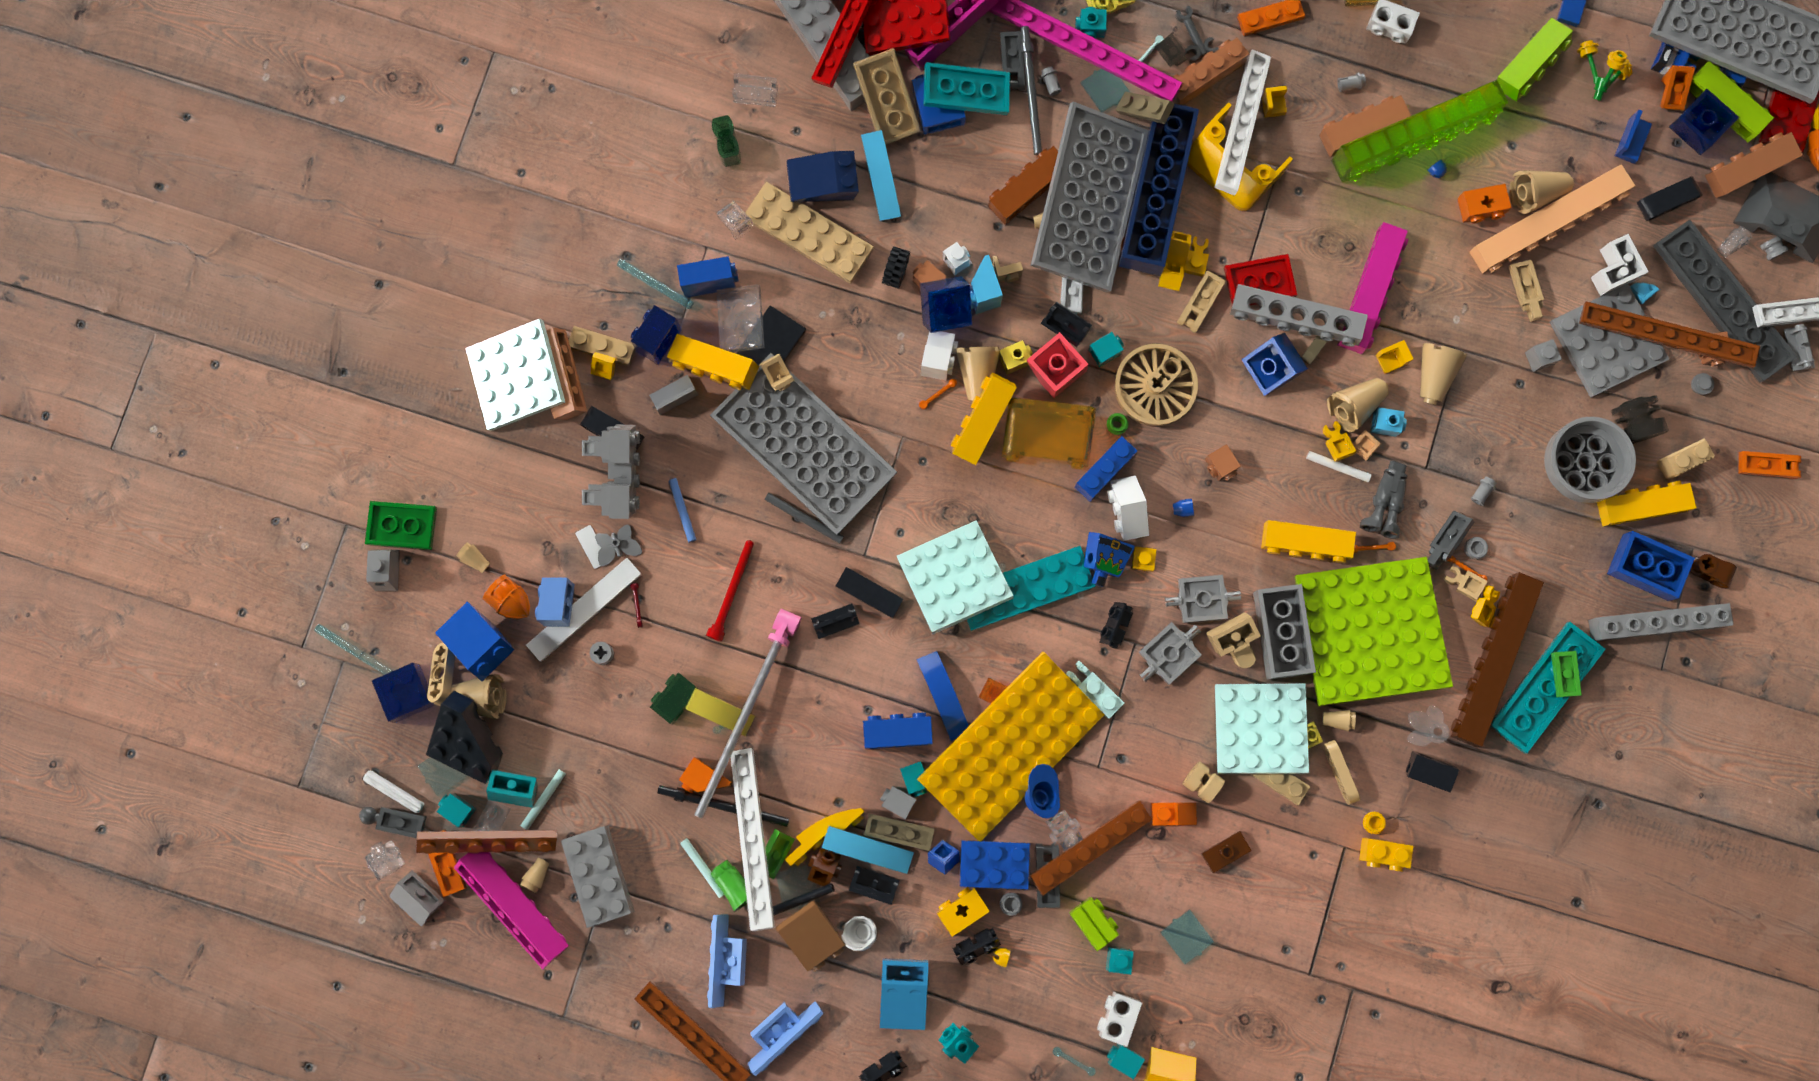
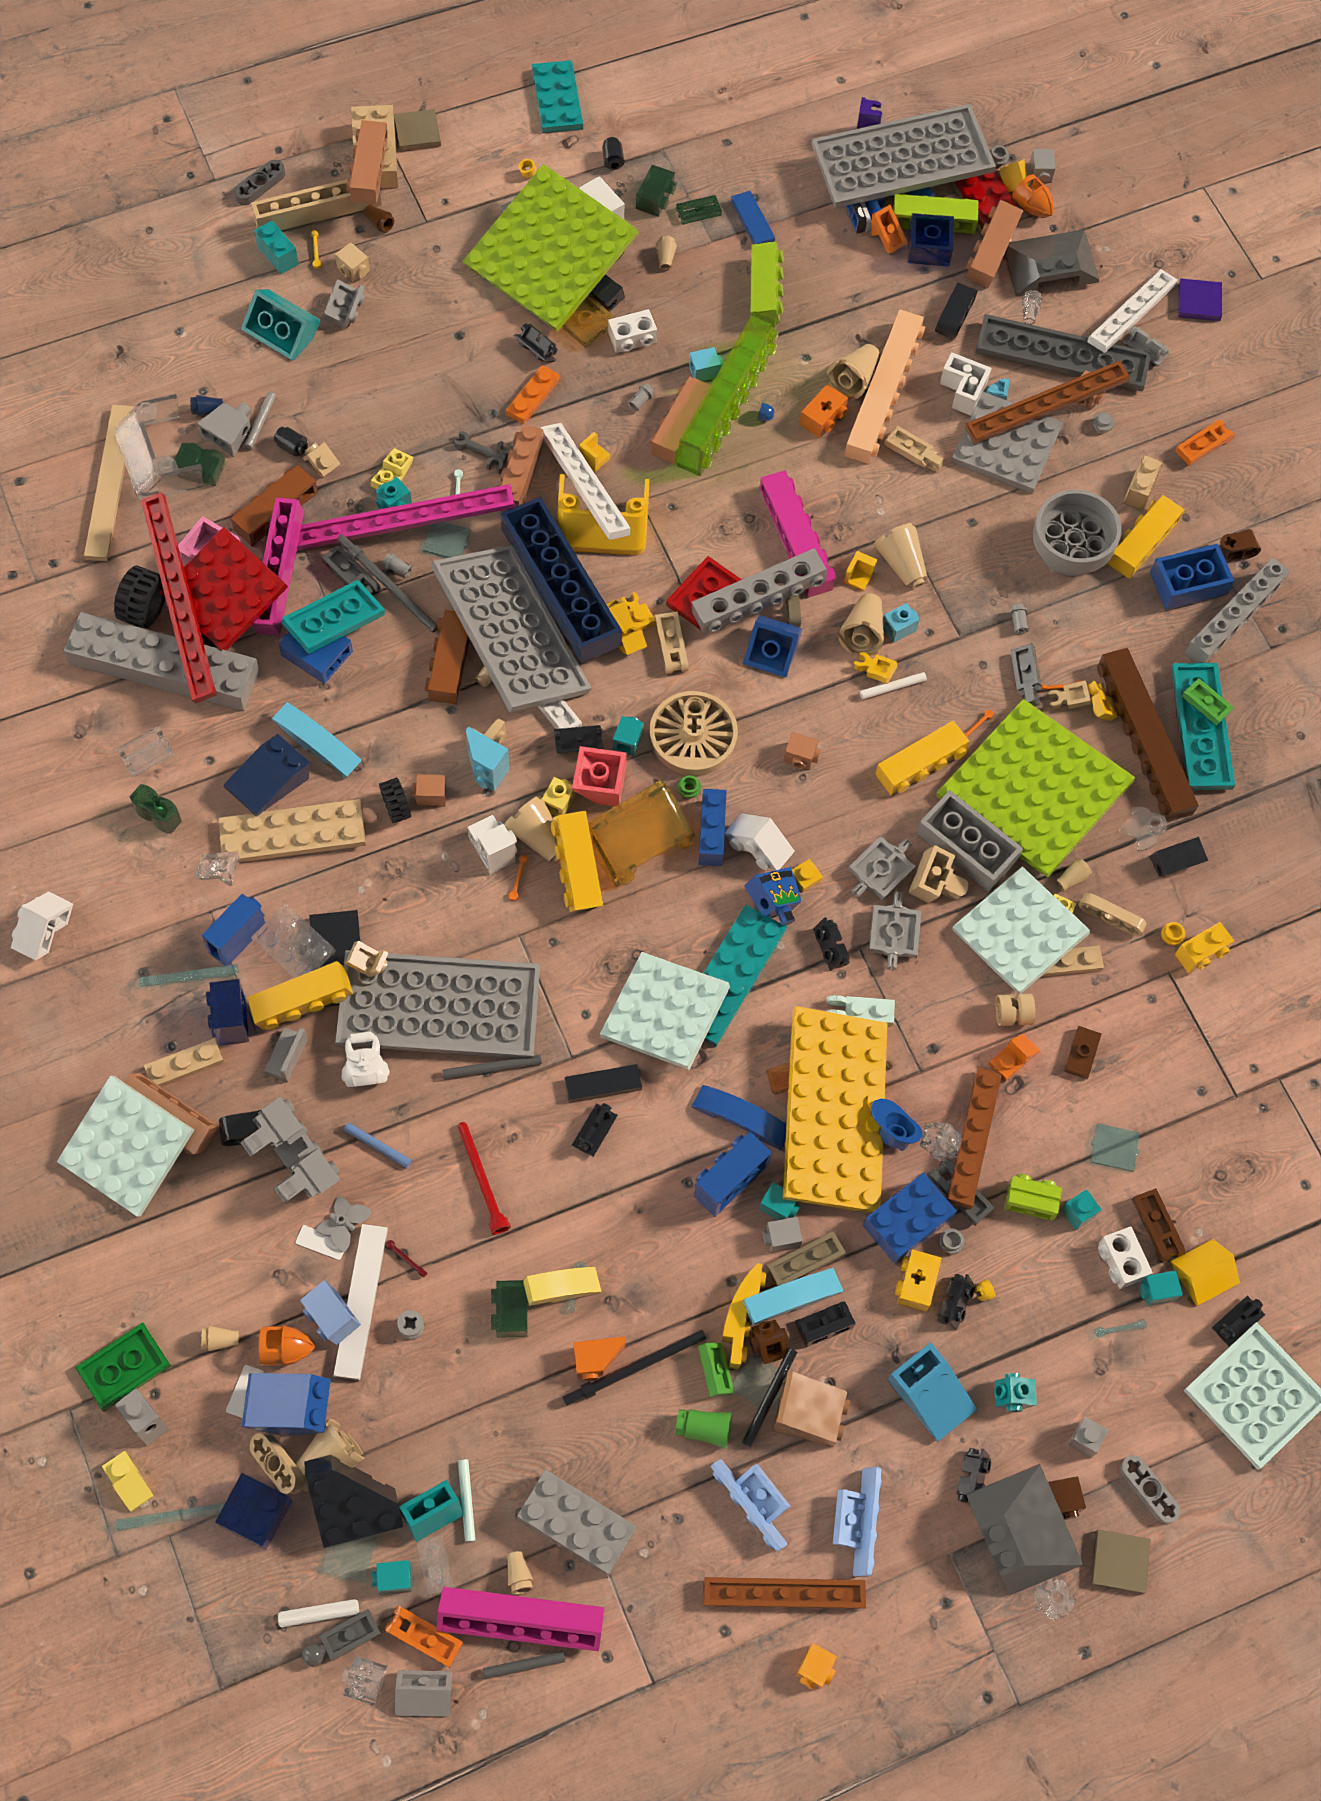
camera: 45 degrees left, 15 degrees down
(345, 604) = (127, 1481): none -> light yellow slope
(473, 598) = (237, 1400): none -> white sticker
(486, 841) = (447, 1576): dark orange plate -> none
(492, 935) = (523, 1665): none -> dark grey bar
(583, 165) = (38, 924): none -> white brick
(603, 365) = (200, 1077): yellow plate -> none
(701, 865) = (663, 1437): light aqua bar -> none
(715, 447) = (366, 1064): none -> white piece
(752, 840) = (688, 1369): white plate -> none
(785, 625) = (556, 1166): flat silver piece -> none
(859, 933) = (850, 1373): white hair -> none
(887, 96) = (268, 670): tan tile -> none
(943, 857) = (861, 1249): blue slope -> none
(946, 304) = (465, 795): clear blue brick -> none
(956, 258) = (439, 752): white brick -> none
(1145, 107) = (495, 526): dark tan plate -> none
(1165, 1016) = (1158, 1225): none -> reddish brown plate
(1172, 50) = (477, 471): clear smoke brick -> none
(1183, 508) = (802, 810): blue hose -> none
(1366, 444) = (899, 652): light nougat tile -> none
(1390, 495) = (952, 675): dark grey piece -> none
(1424, 93) = (705, 364): none -> brick
(1476, 548) = (1053, 666): light grey tile -> none
(1543, 355) = (970, 486): light grey brick -> none
(1617, 62) = (836, 248): plant -> none
(1633, 138) = (889, 288): blue panel -> none
(1640, 419) = (1083, 476): clear smoke wheel -> none
(1774, 248) = (1063, 290): light grey wheel -> none

